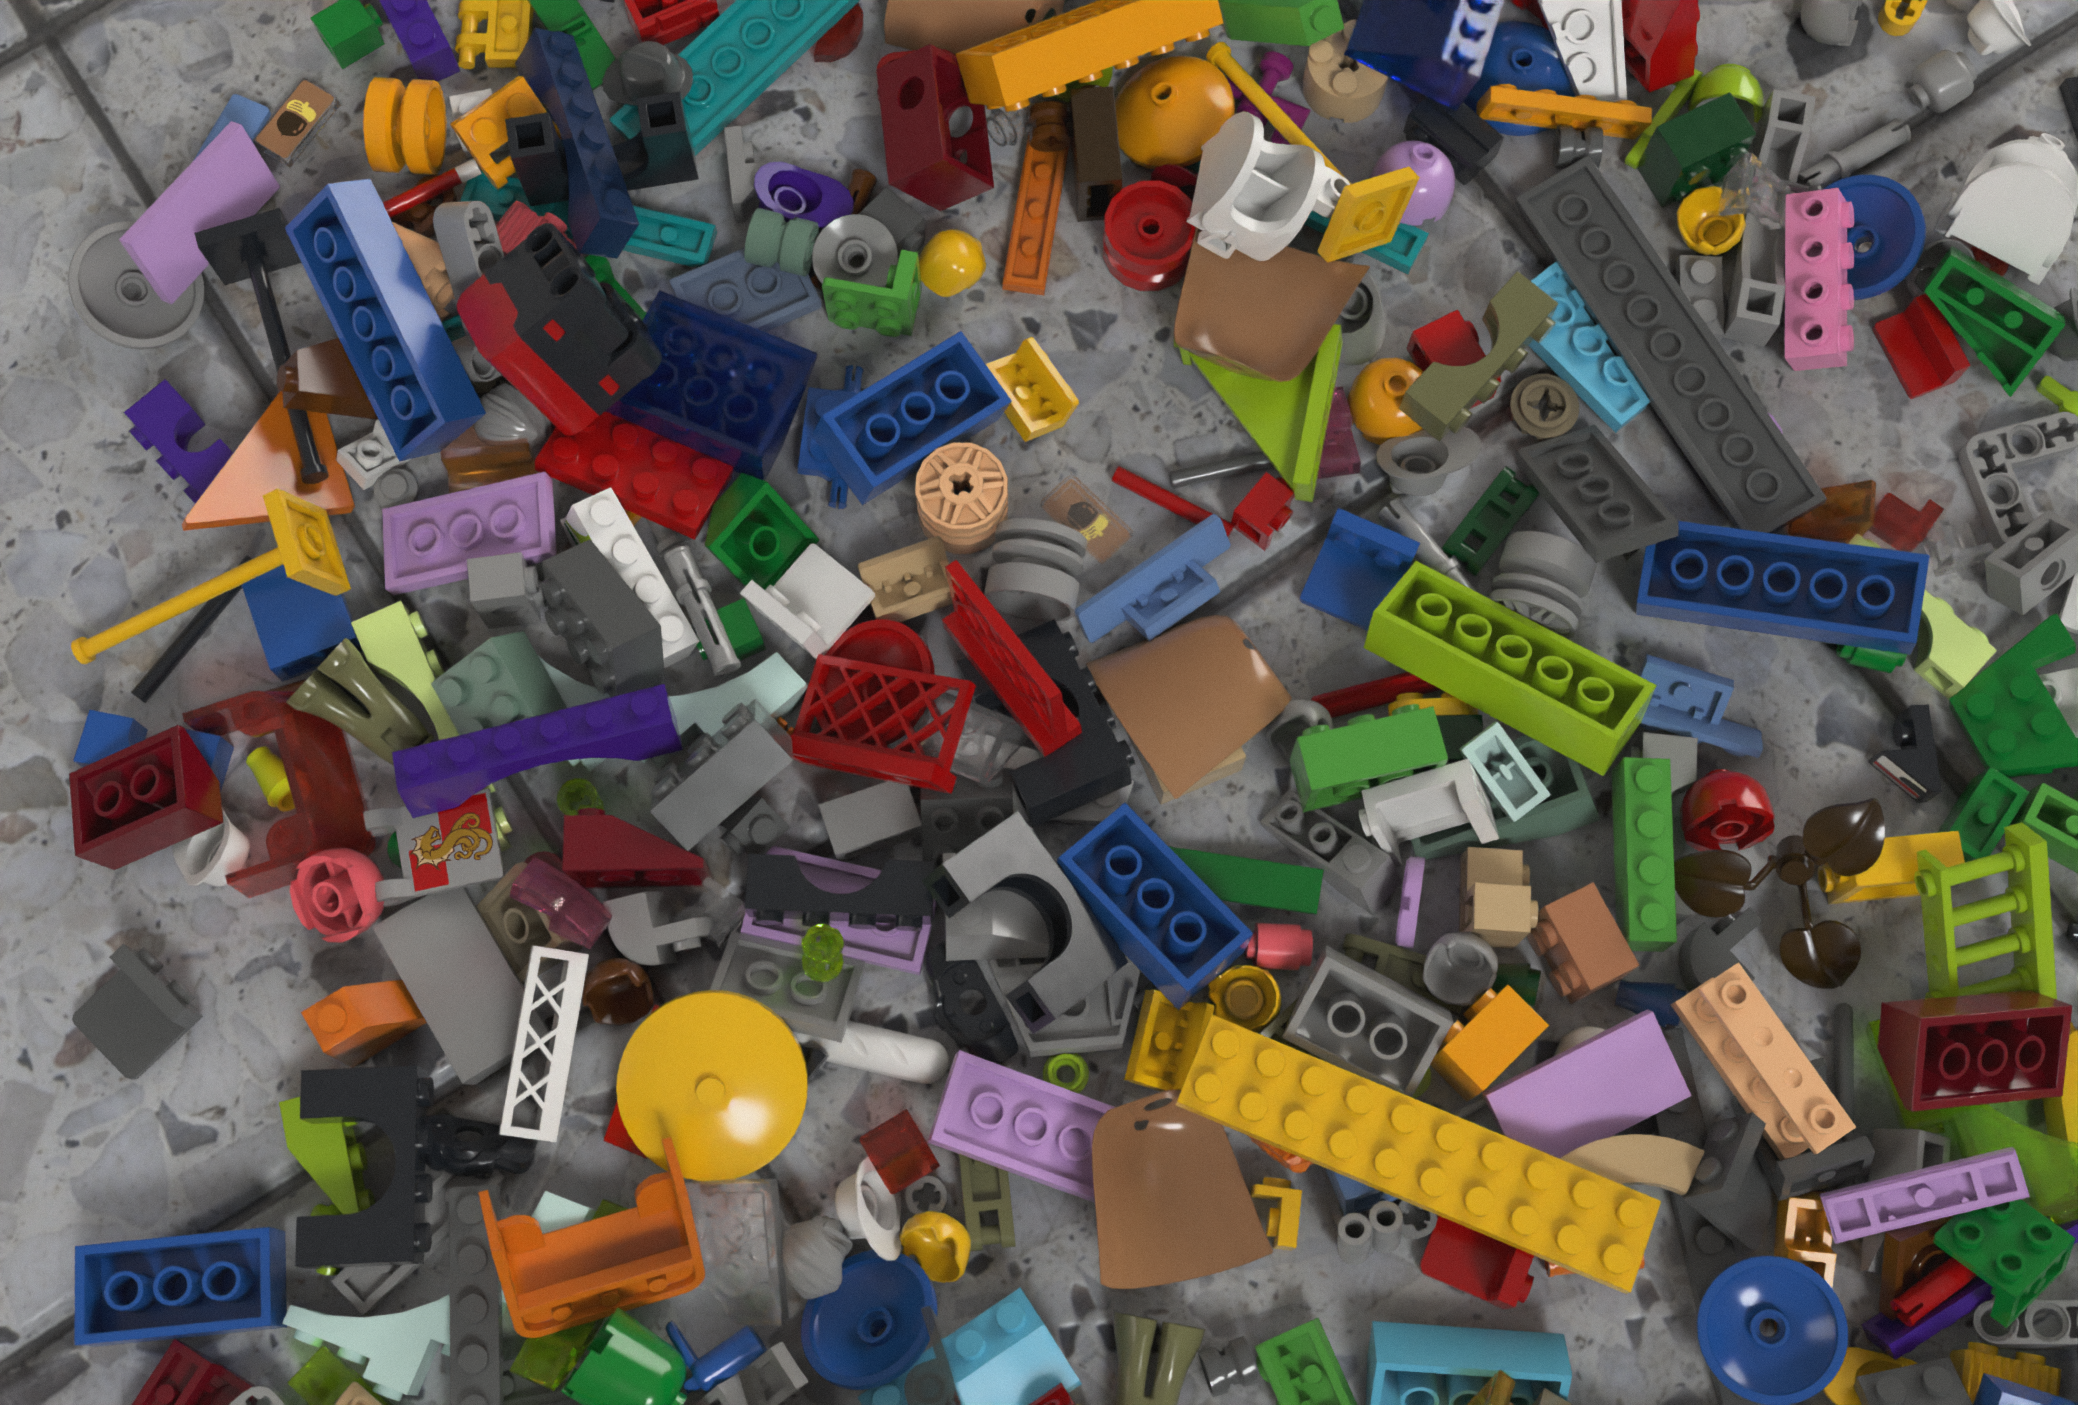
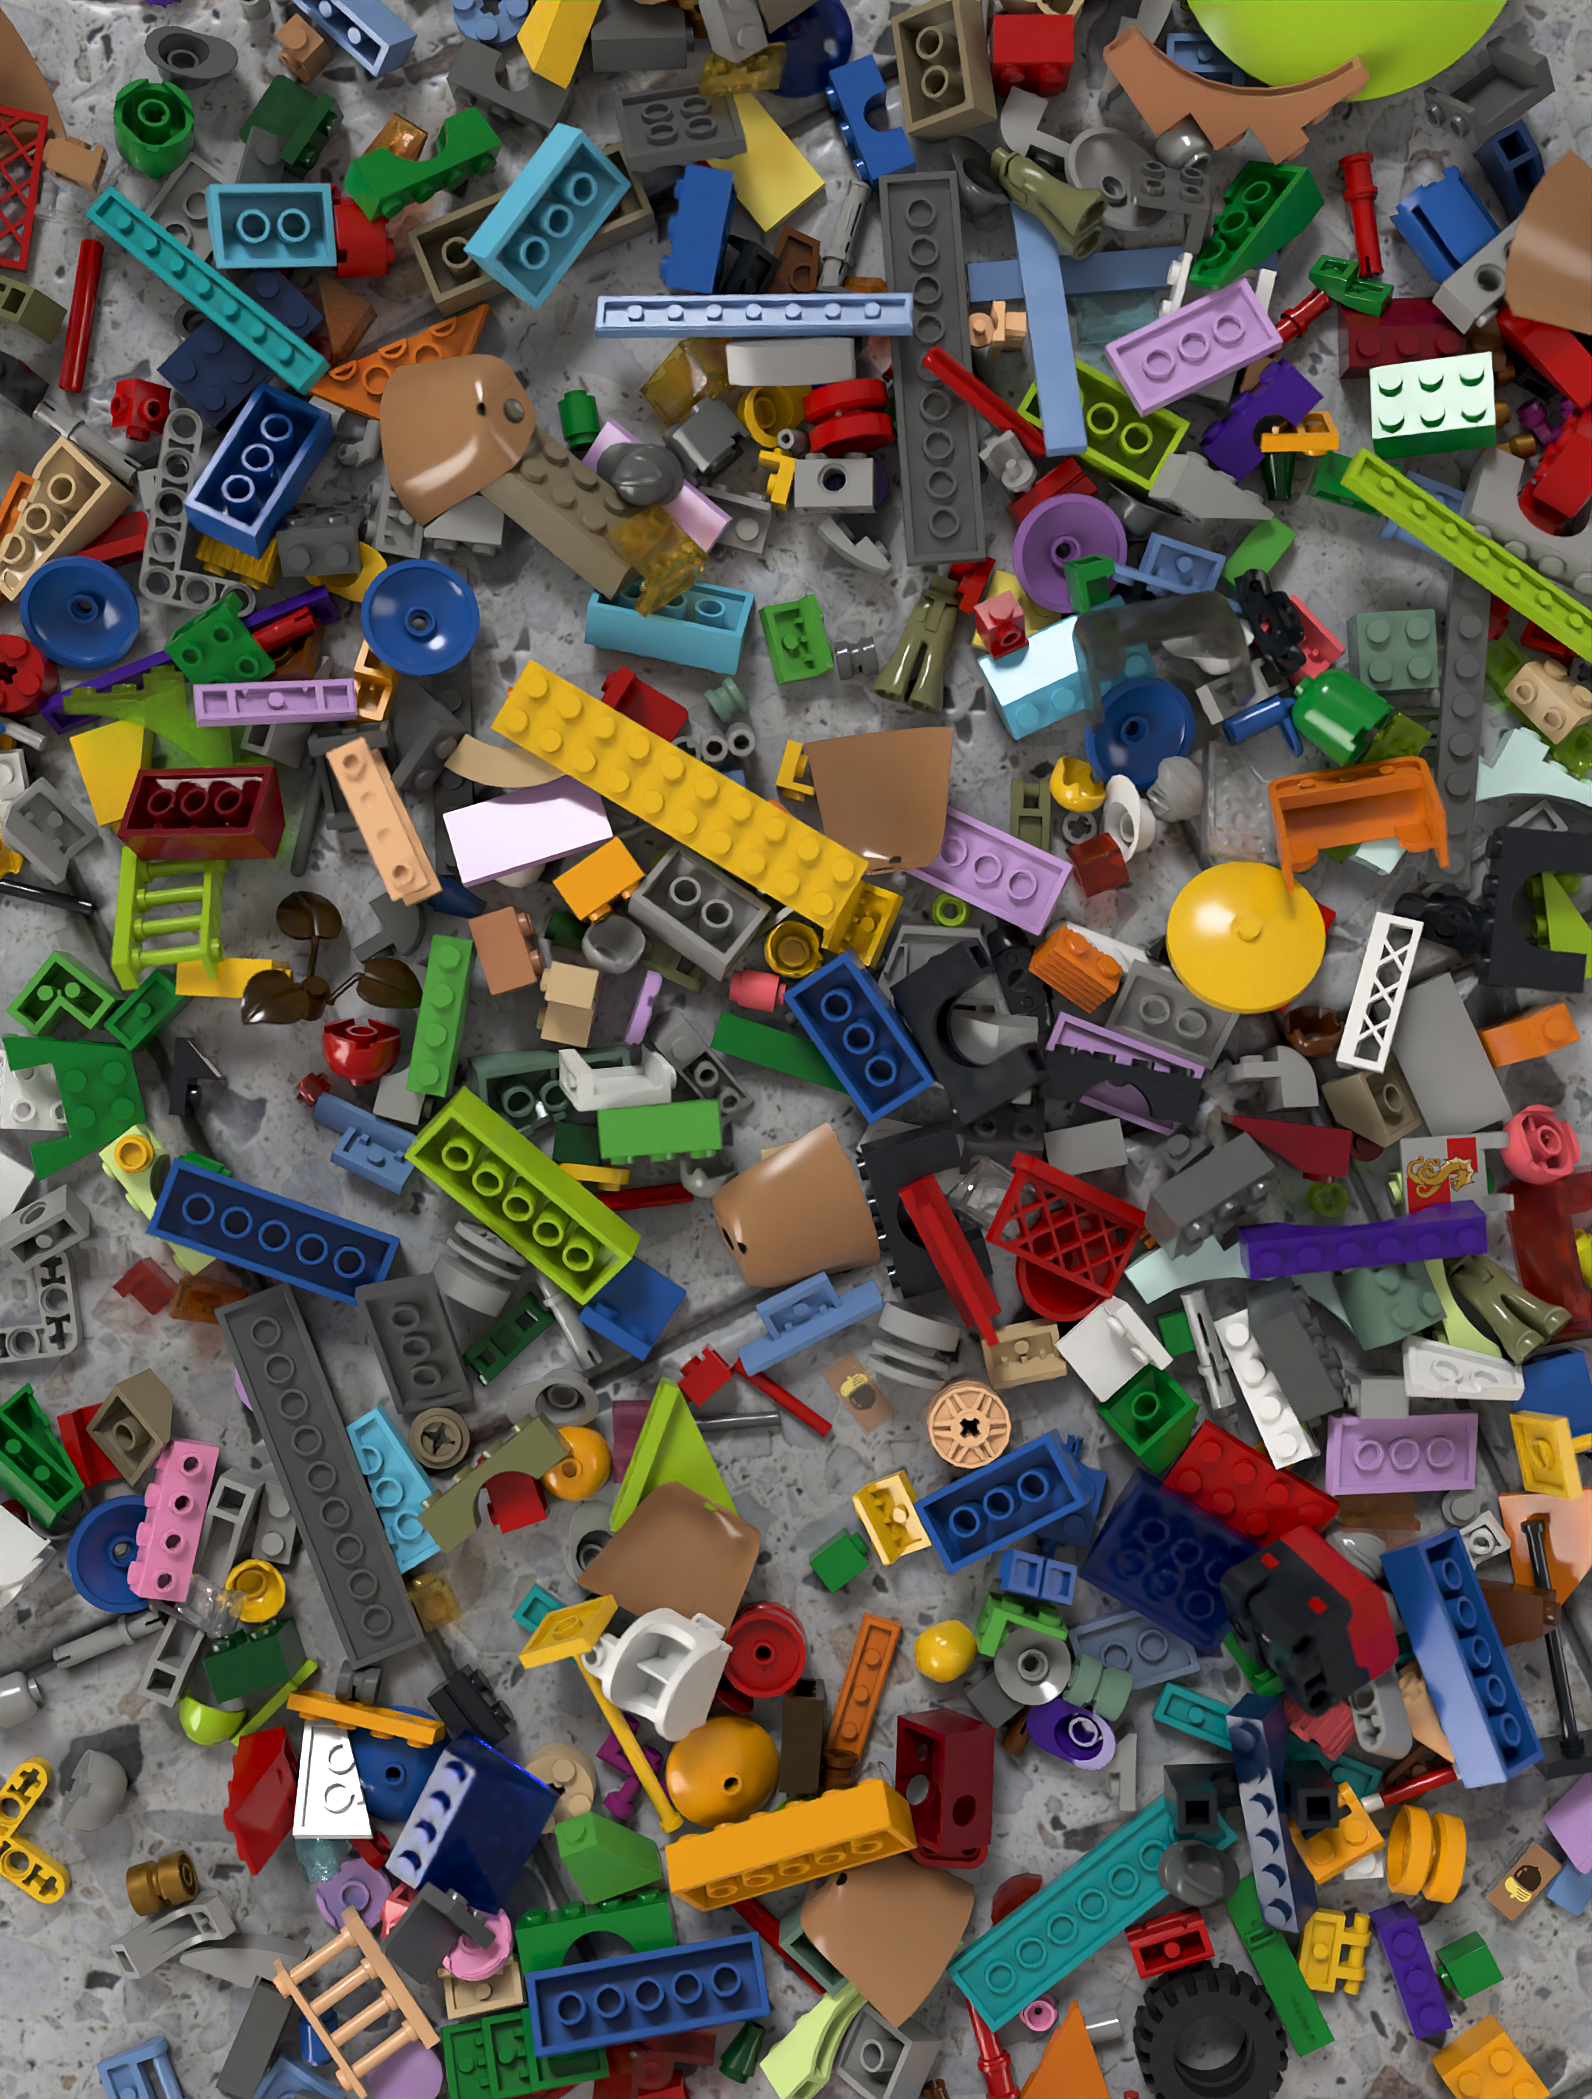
camera: 165 degrees left, 15 degrees up
(414, 619) = (1454, 1372): none -> white wing
(572, 908) = (1349, 1103): clear pink slope -> none
(831, 944) = (1131, 1041): clear neon green bush -> none
(869, 341) = (1030, 1577): none -> blue hips
(908, 1021) = (1076, 968): none -> orange brick
(1081, 339) = (840, 1559): none -> green brick
(1377, 1289) = (726, 701): none -> sand green wheel
(1435, 183) = (504, 1674): lavender cylinder -> none
(1504, 772) = (545, 1103): light aqua slope -> none
(1514, 241) = (434, 1600): none -> clear yellow bracket
(1770, 761) = (311, 1088): none -> clear red plate
(1882, 371) = (134, 1424): none -> dark tan slope
(1957, 652) = (134, 1153): none -> yellow plate

